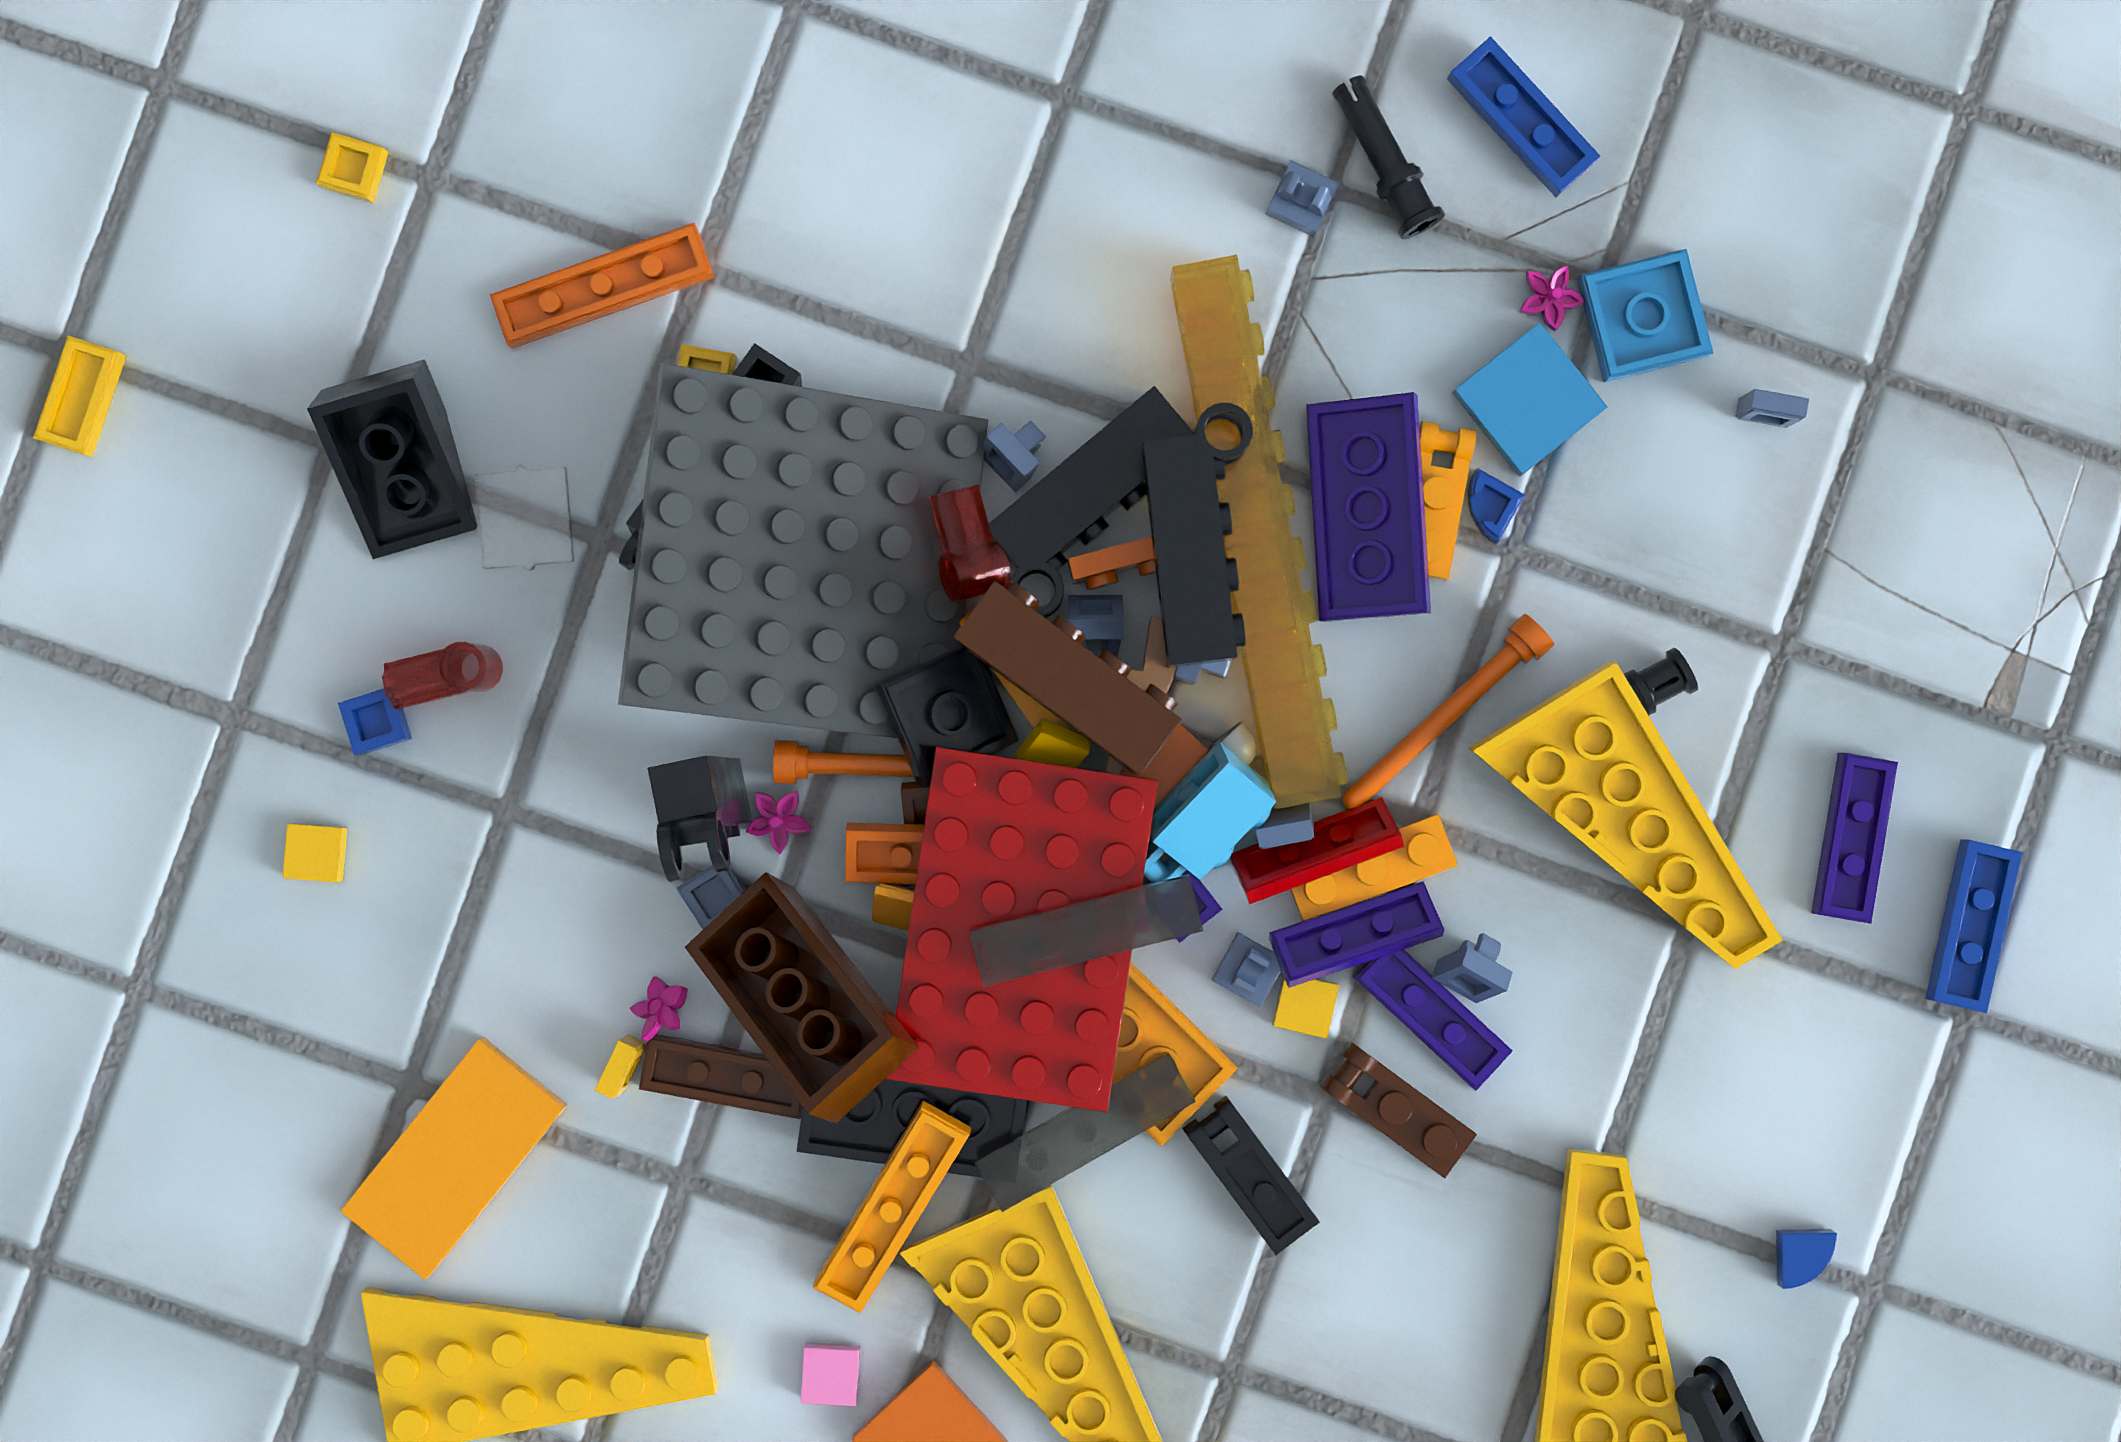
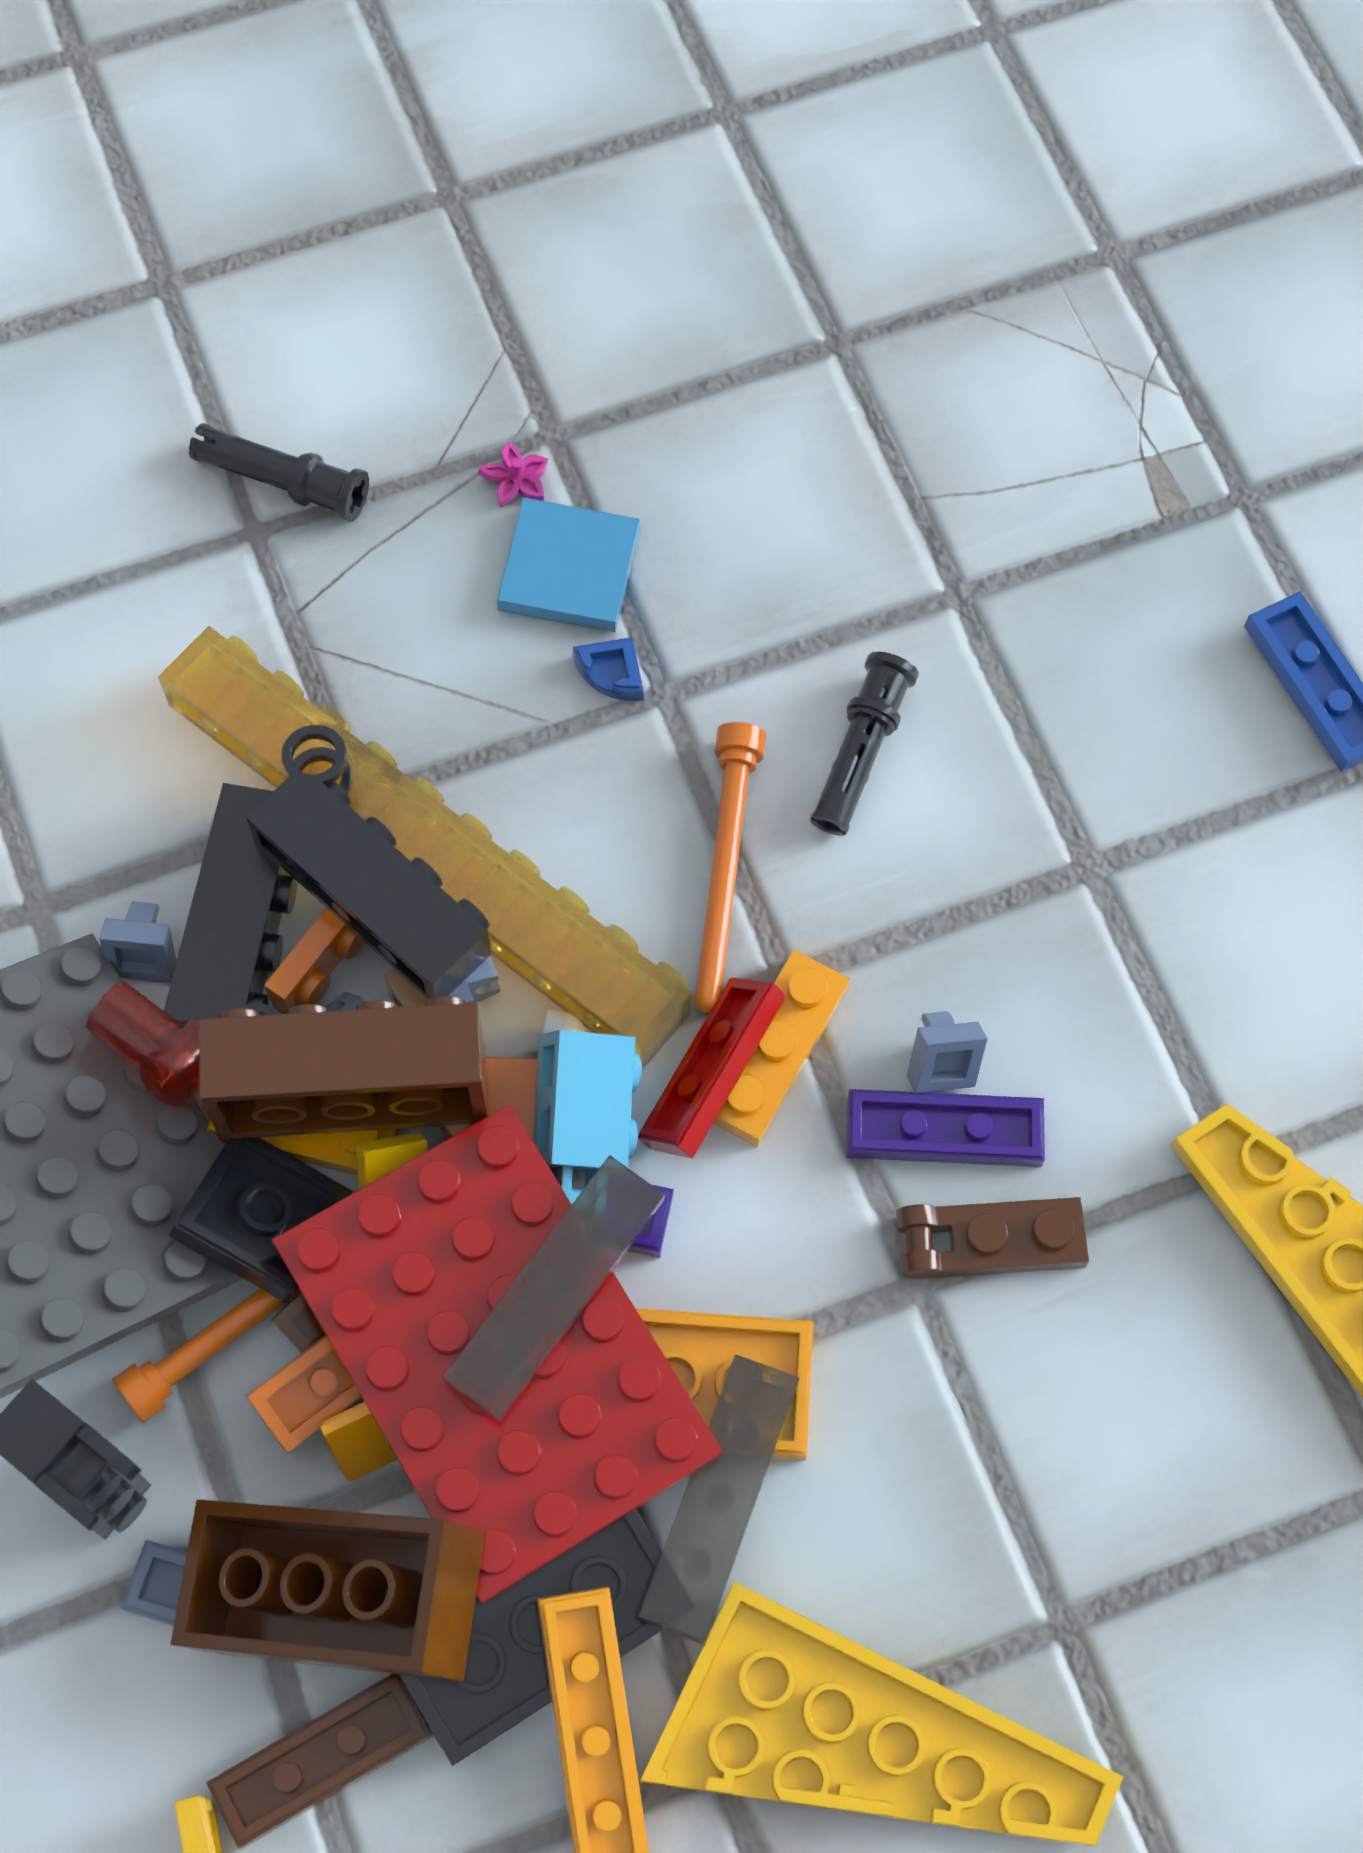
camera: 45 degrees left, 20 degrees down
(660, 1007) = (196, 1741): dark pink plant -> none
(778, 819) = (175, 1458): dark pink plant -> none
(1248, 970) = (745, 1225): sand blue tile -> none
(1252, 1177) = (915, 1410): black plate -> none
(1286, 826) = (666, 1064): sand blue tile -> none
(1302, 198) = (233, 555): sand blue tile -> none
(1306, 1007) = (825, 1214): yellow tile -> none
(1356, 934) = (812, 1110): dark purple tile -> none
(1368, 508) = (505, 747): dark purple tile -> none
(1444, 492) = (560, 705): light orange plate -> none
(1523, 117) = (370, 359): blue plate -> none
(1617, 789) = (923, 799): yellow wing -> none
(1645, 315) = (608, 433): dark azure tile -> none
(1771, 408) = (774, 419): sand blue tile -> none
(1854, 837) = (1160, 694): dark purple tile -> none

